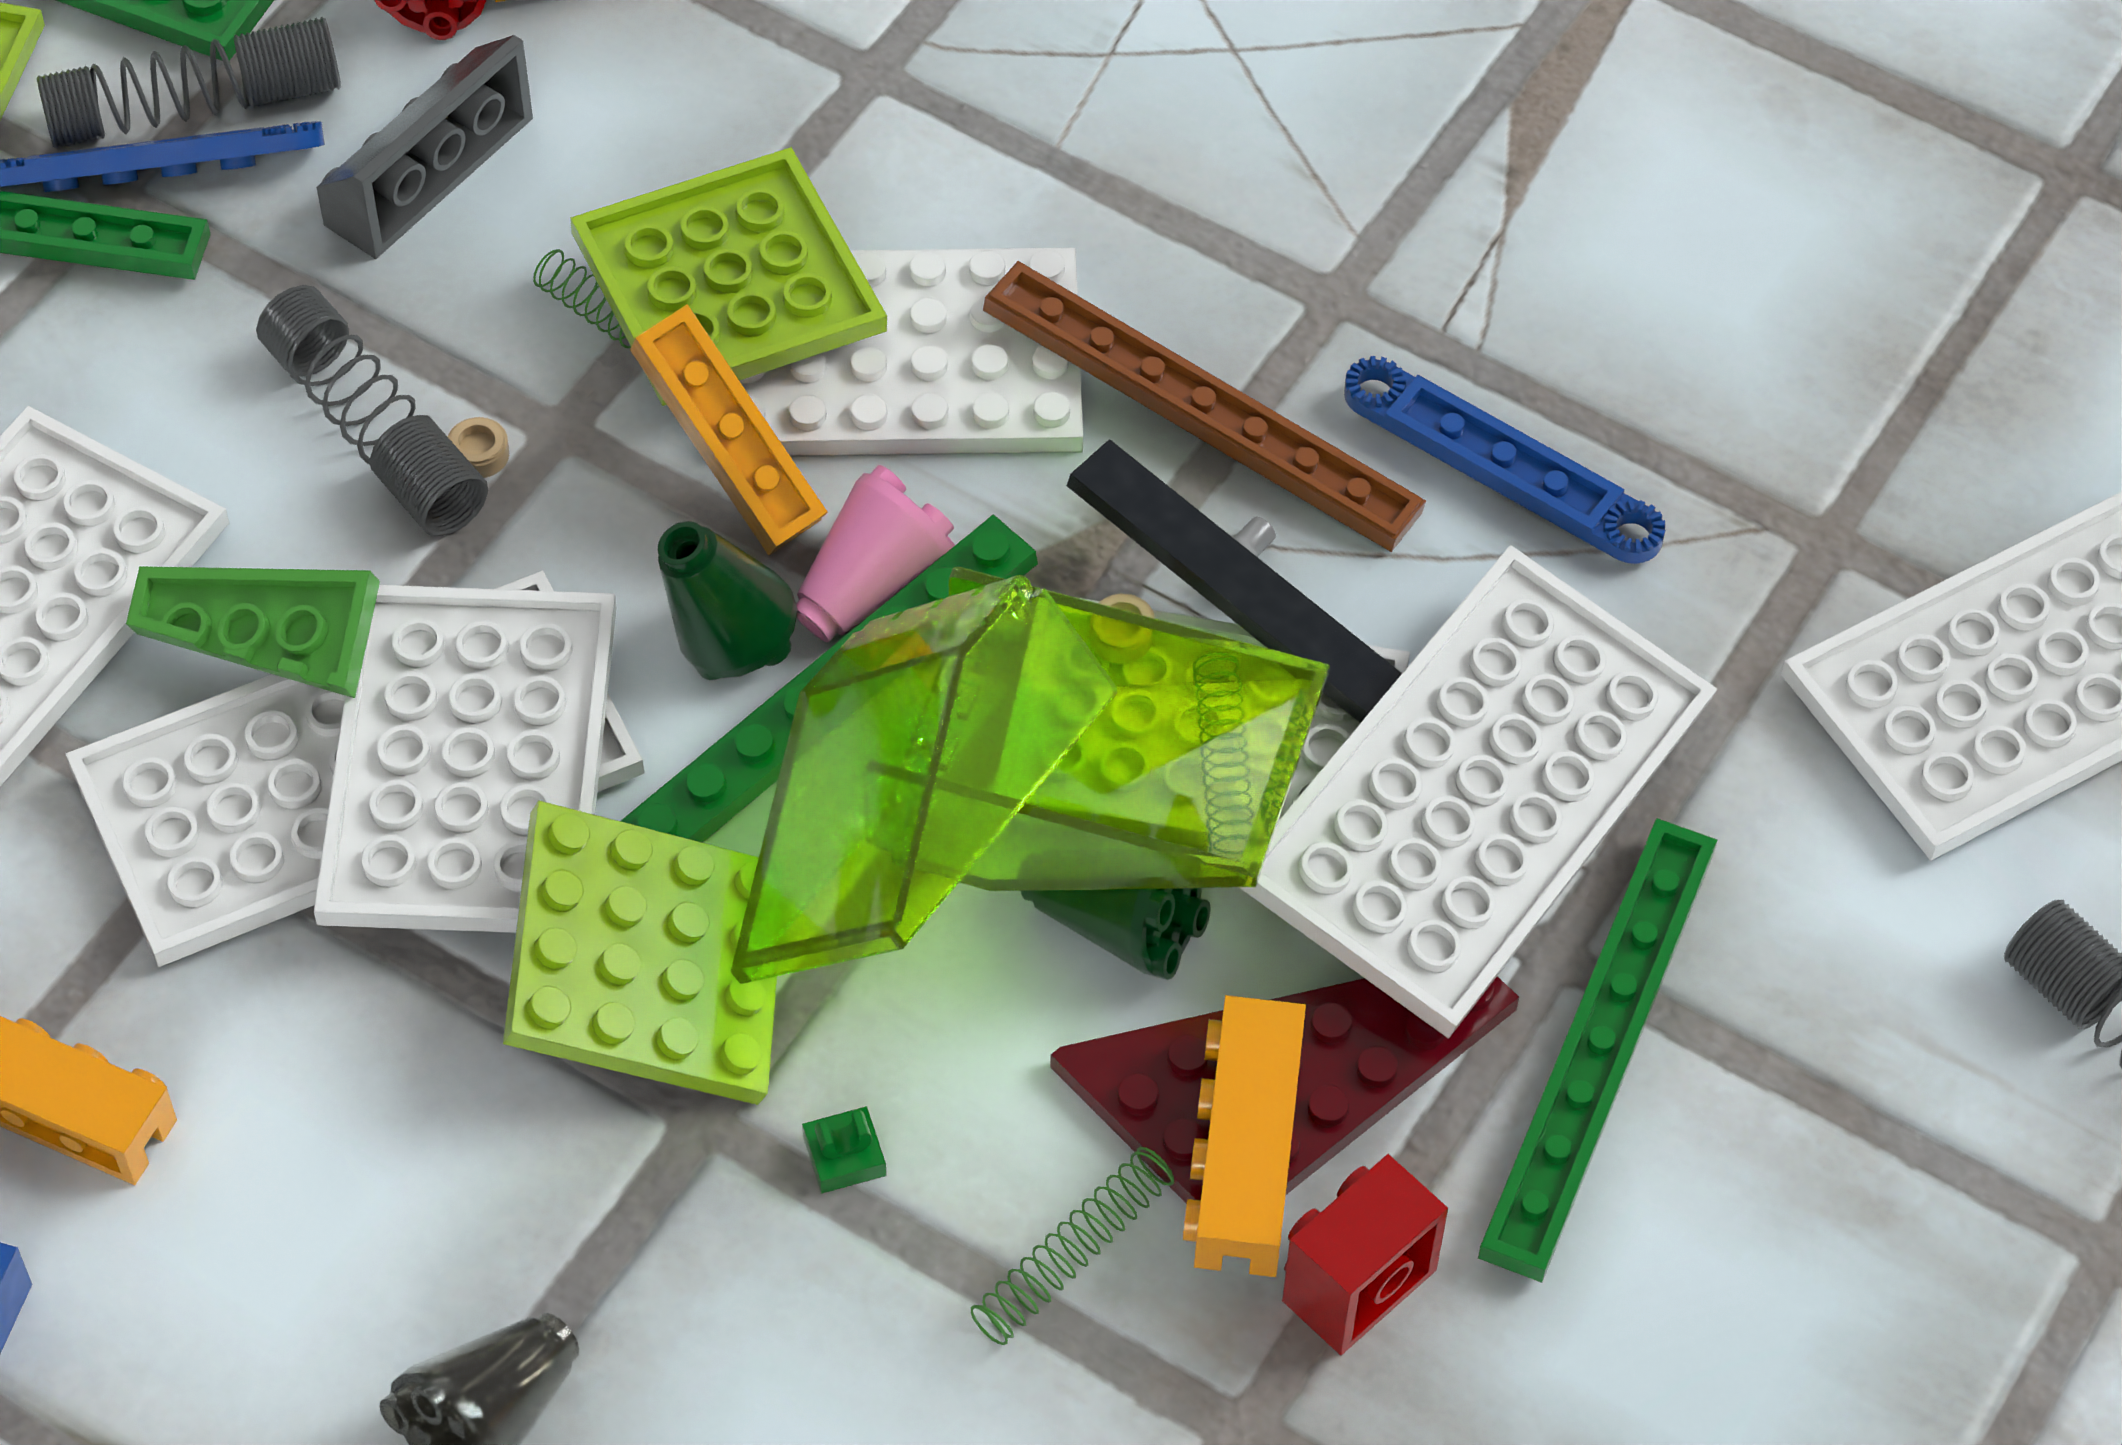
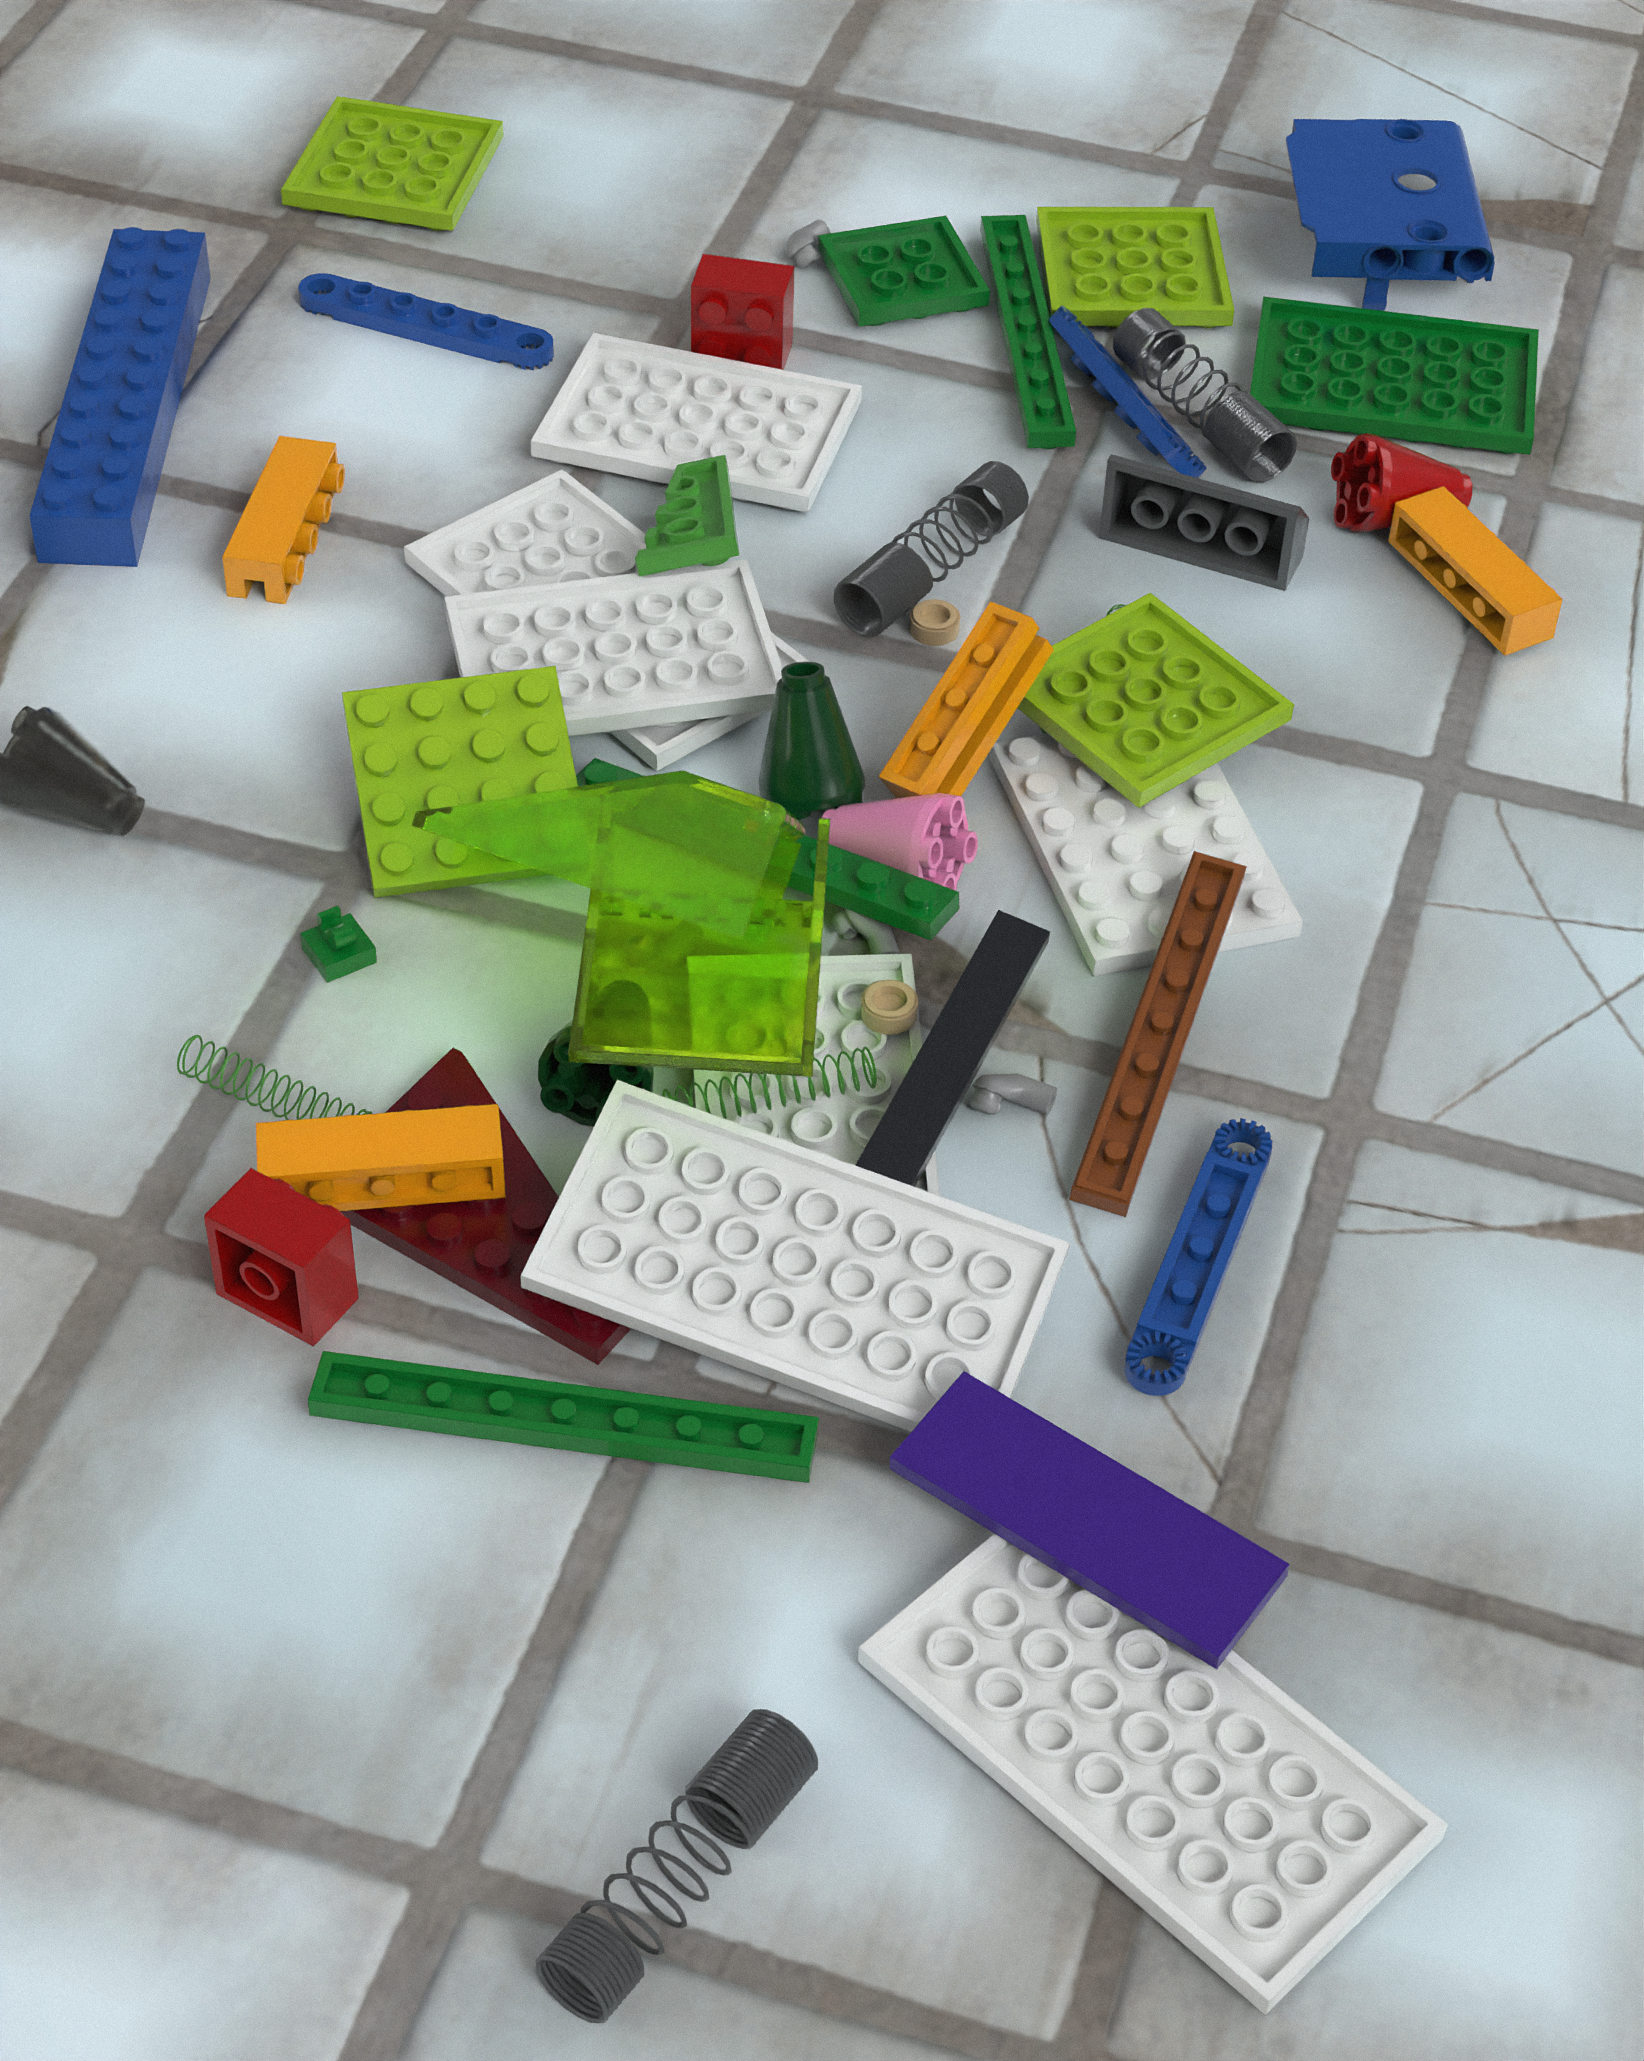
camera: 75 degrees right, 10 degrees down
(1828, 626) = (1090, 1519): none -> dark purple tile

